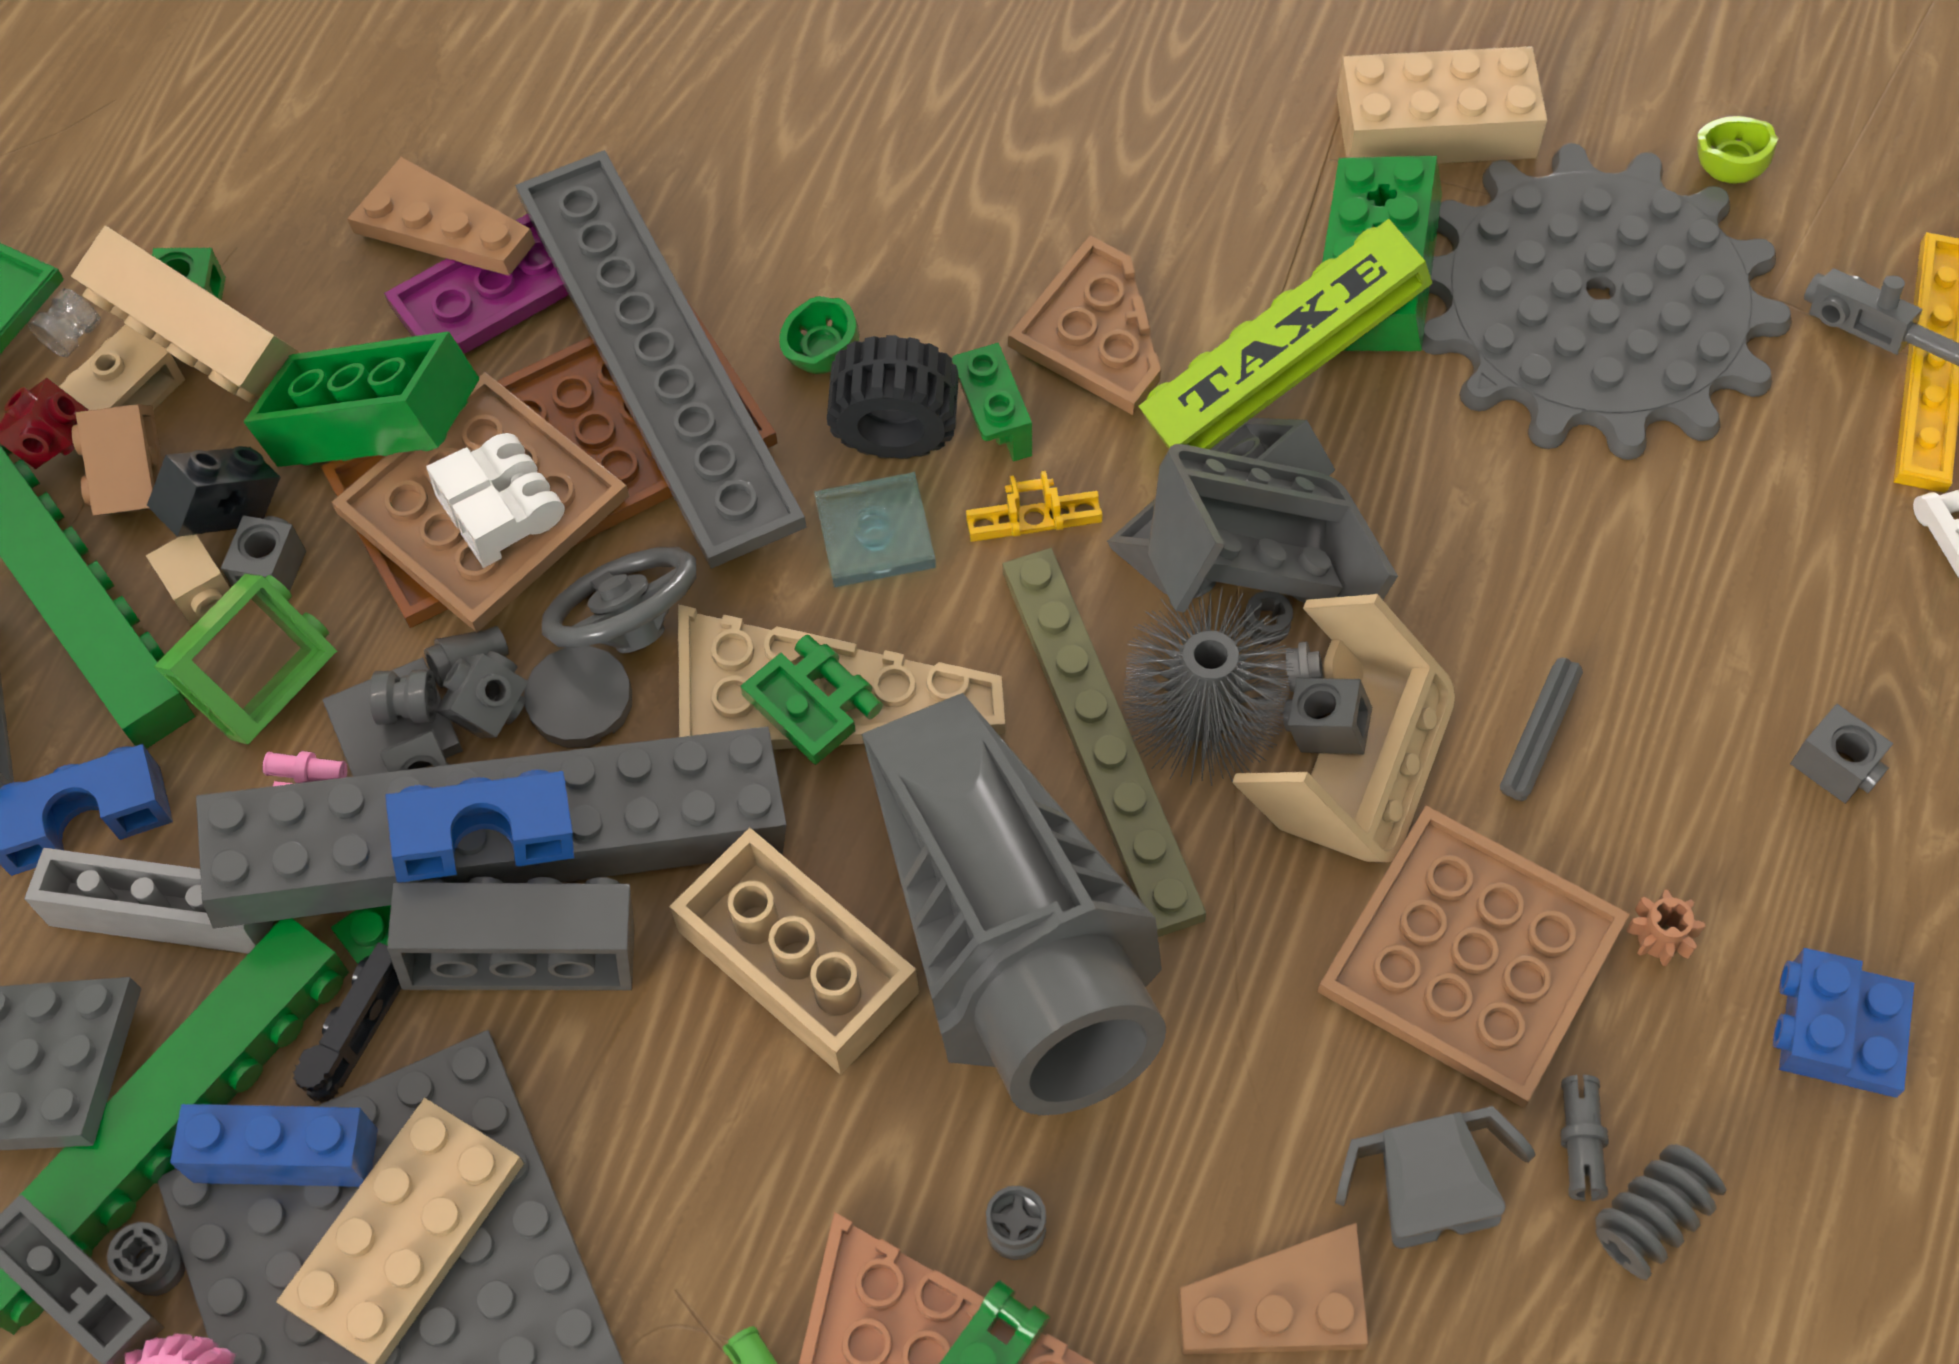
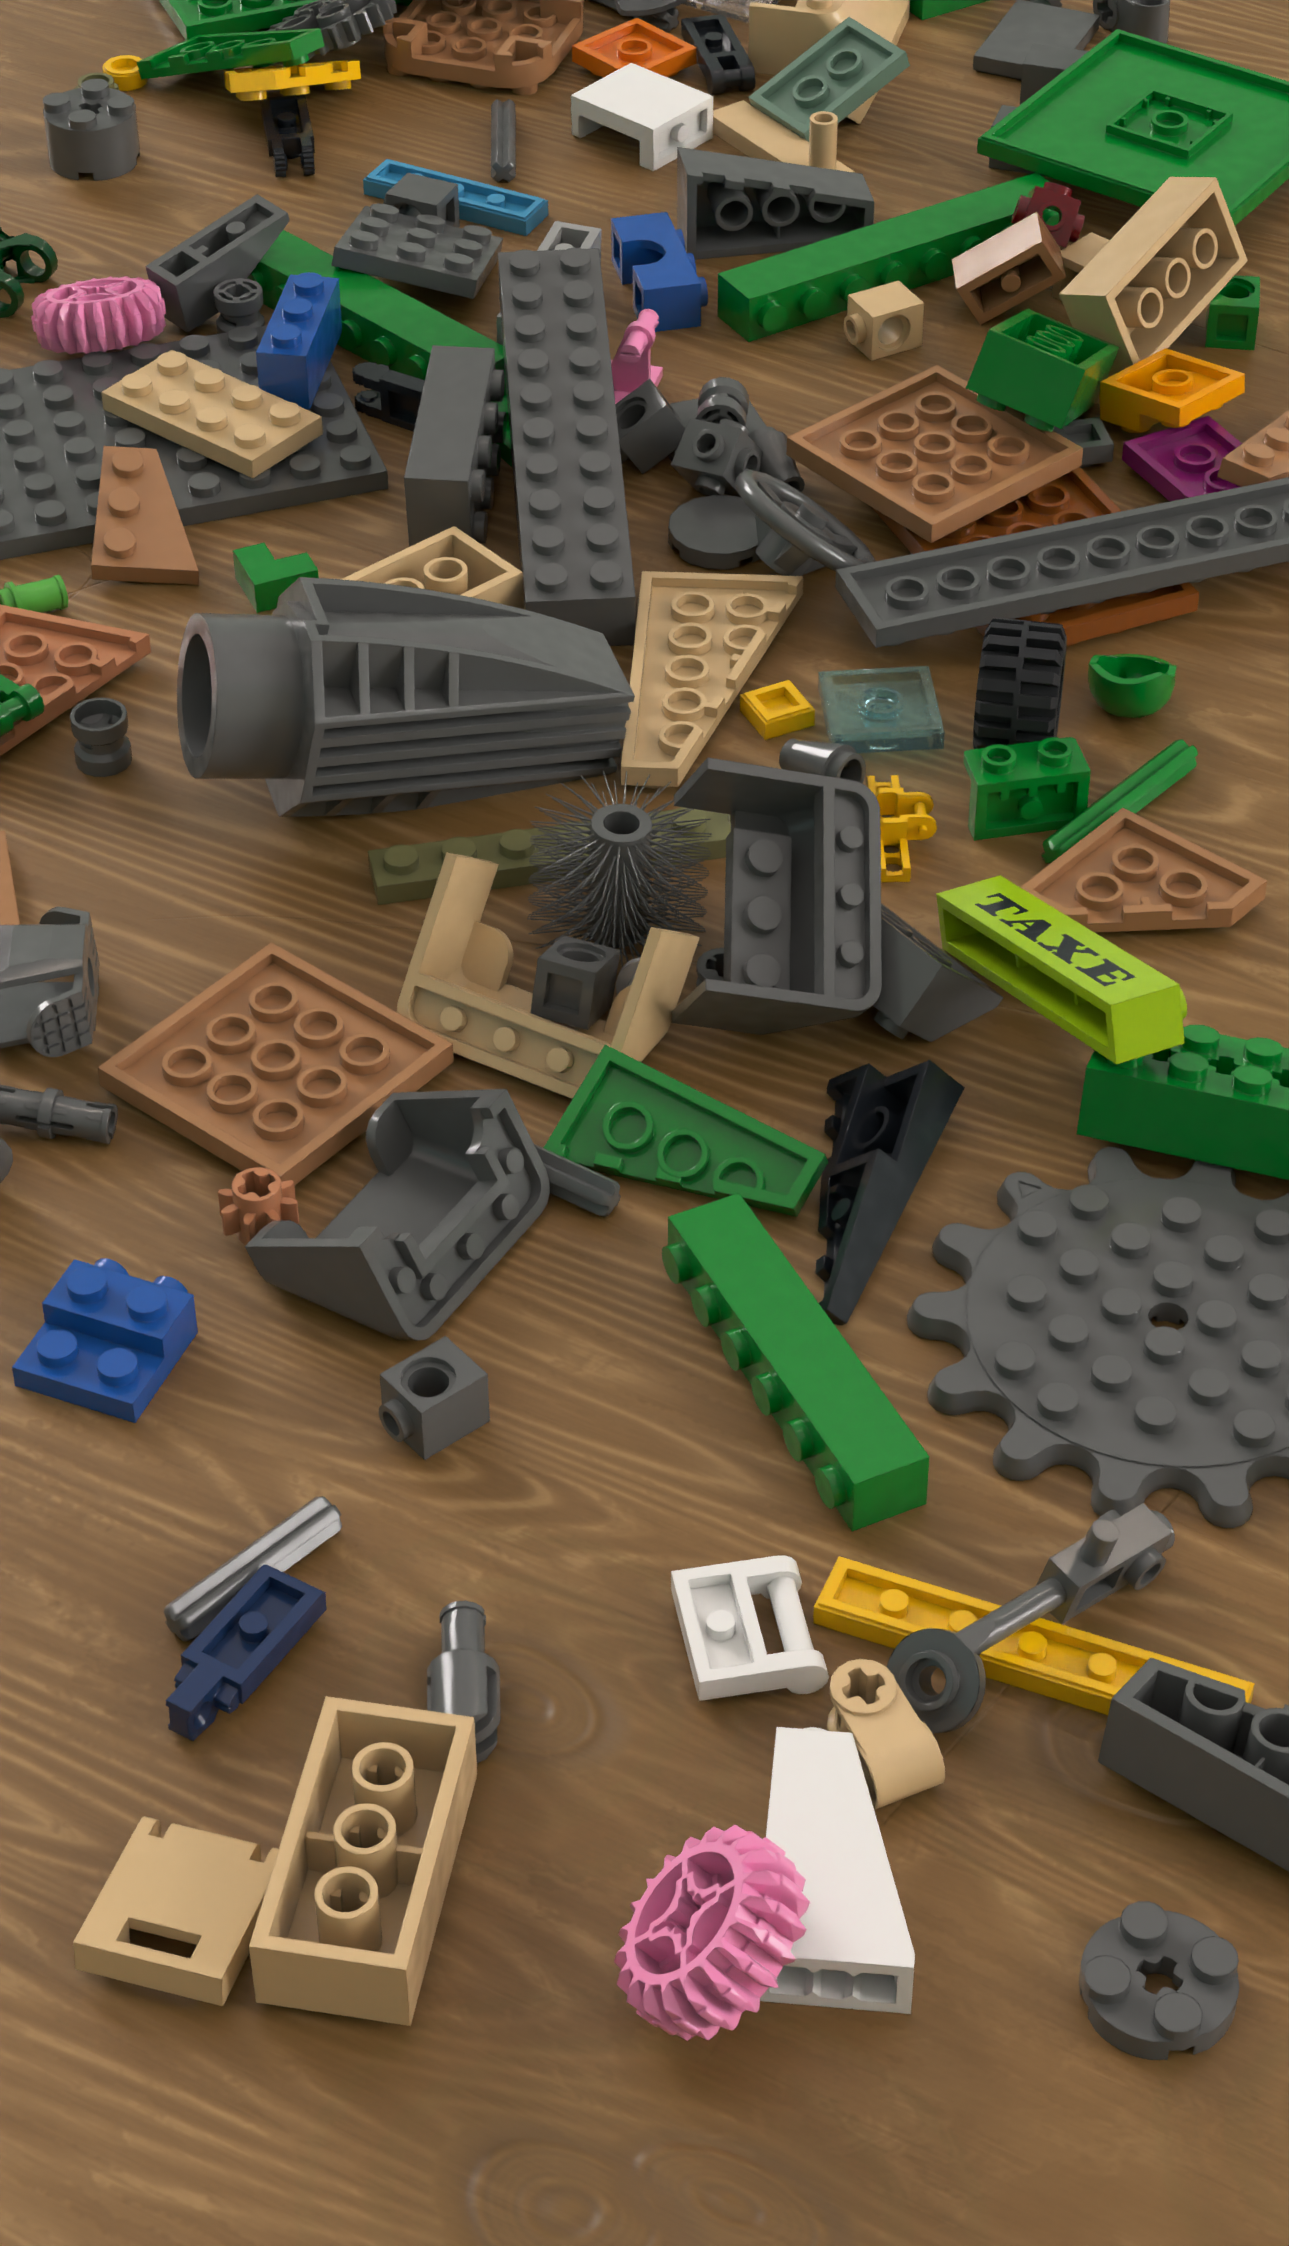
camera: 95 degrees right, 20 degrees down
(212, 490) = (958, 305): black brick -> none
(259, 537) = (897, 352): dark grey brick -> none
(305, 630) = (750, 290): bright green window -> none
(352, 308) = (1166, 390): none -> light orange plate
(432, 821) = (533, 380): blue arch -> none
(494, 495) = (913, 429): white legs -> none
(616, 1274) = (138, 522): none -> medium nougat wing
(702, 1119) = (265, 578): none -> green piece
(801, 708) = (662, 621): green plate -> none
(870, 617) = (777, 709): none -> yellow tile
(966, 337) = (1131, 794): none -> green axle
(969, 565) = (823, 759): none -> dark grey cone
(1452, 482) = (879, 1150): none -> black wedge
(1498, 619) = (670, 1135): none -> green wing
(1655, 811) = (431, 1224): none -> dark grey windscreen
(1719, 516) = (796, 1363): none -> green brick

